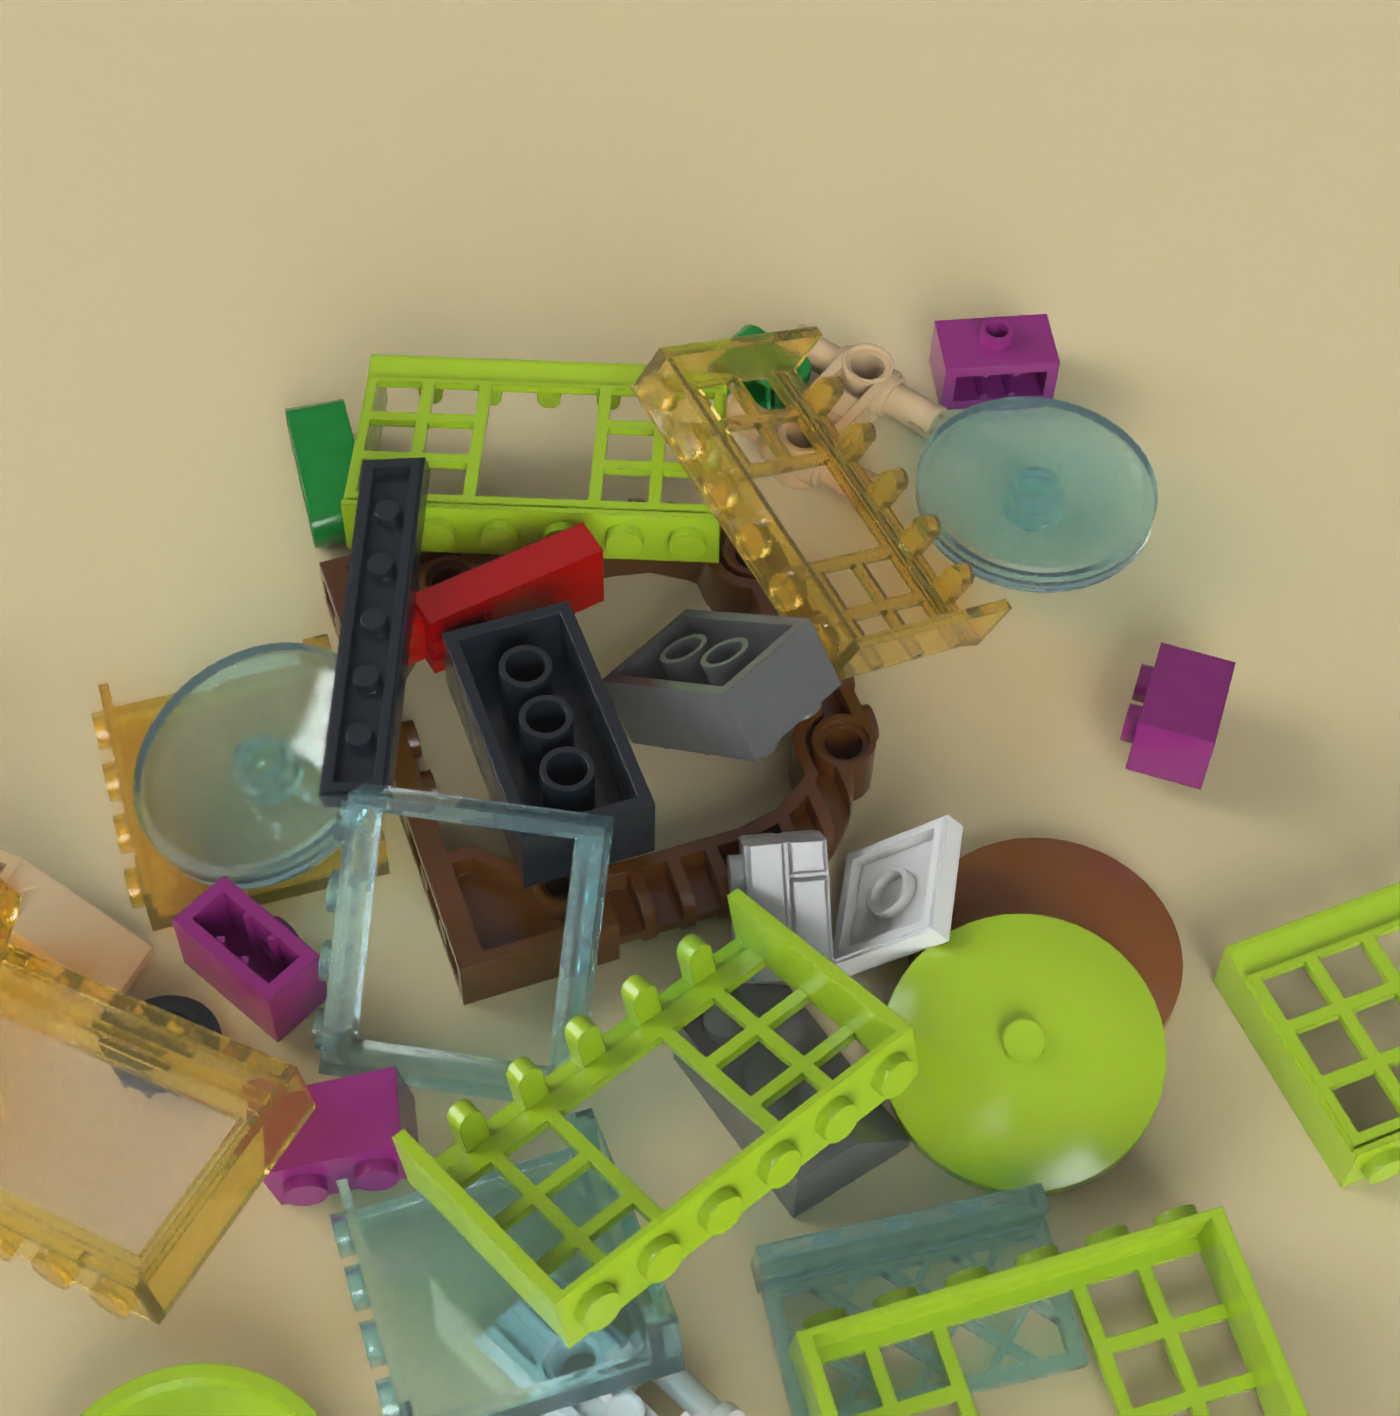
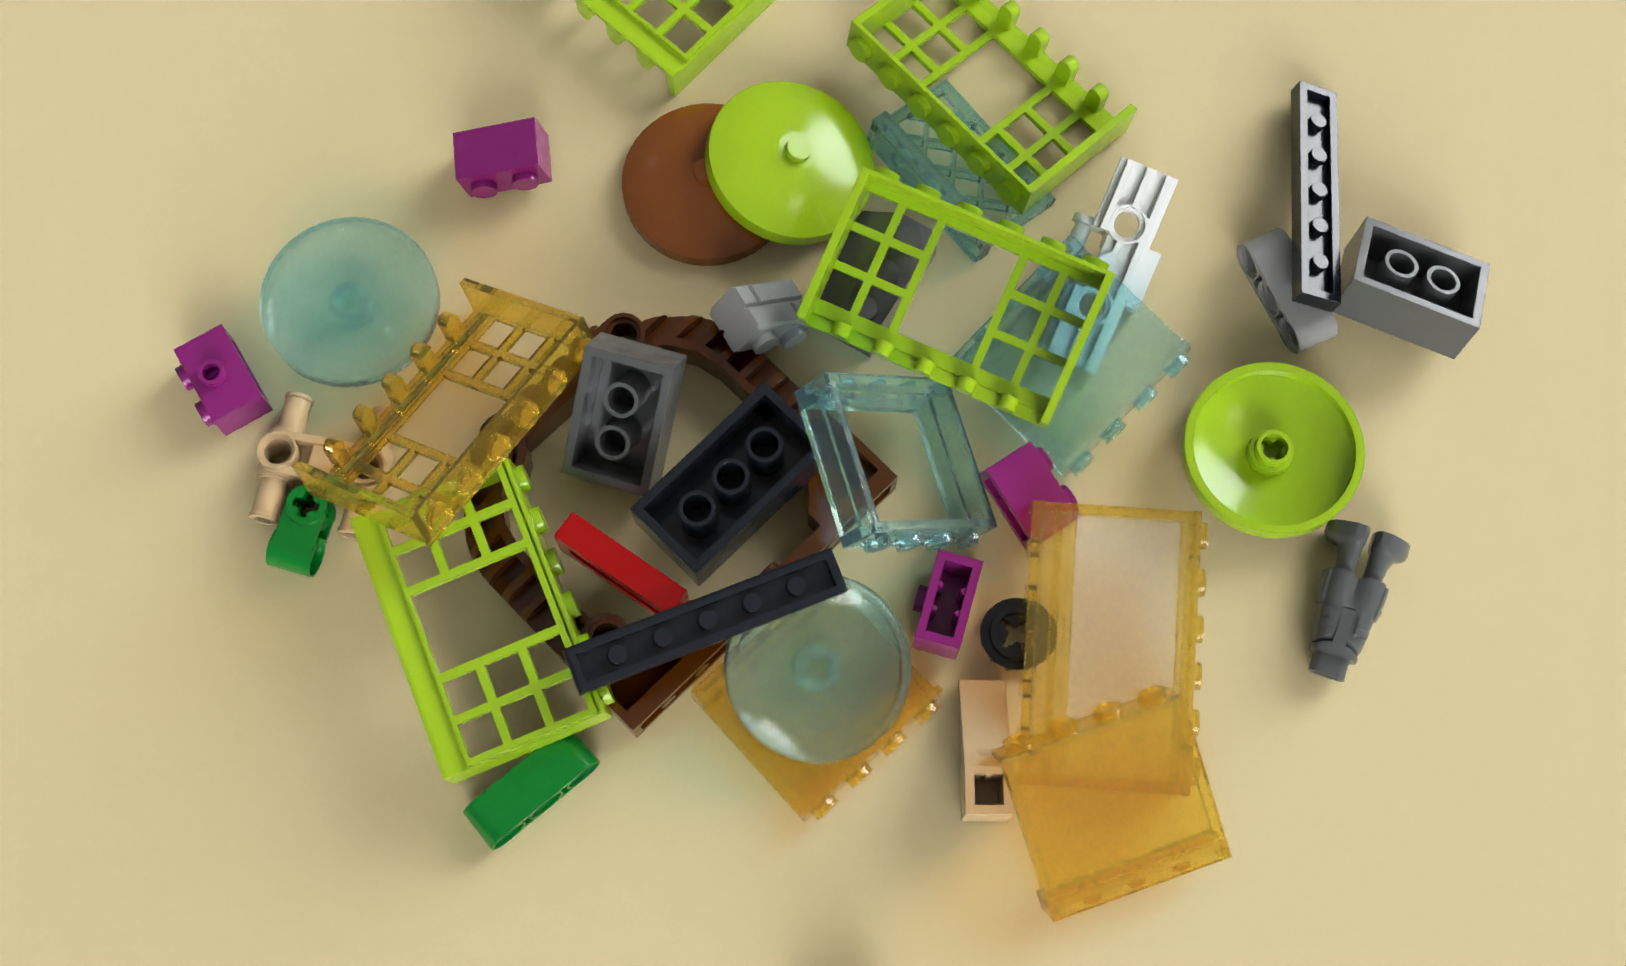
camera: 115 degrees left, 20 degrees up
(897, 896) = (717, 257): white tile -> none

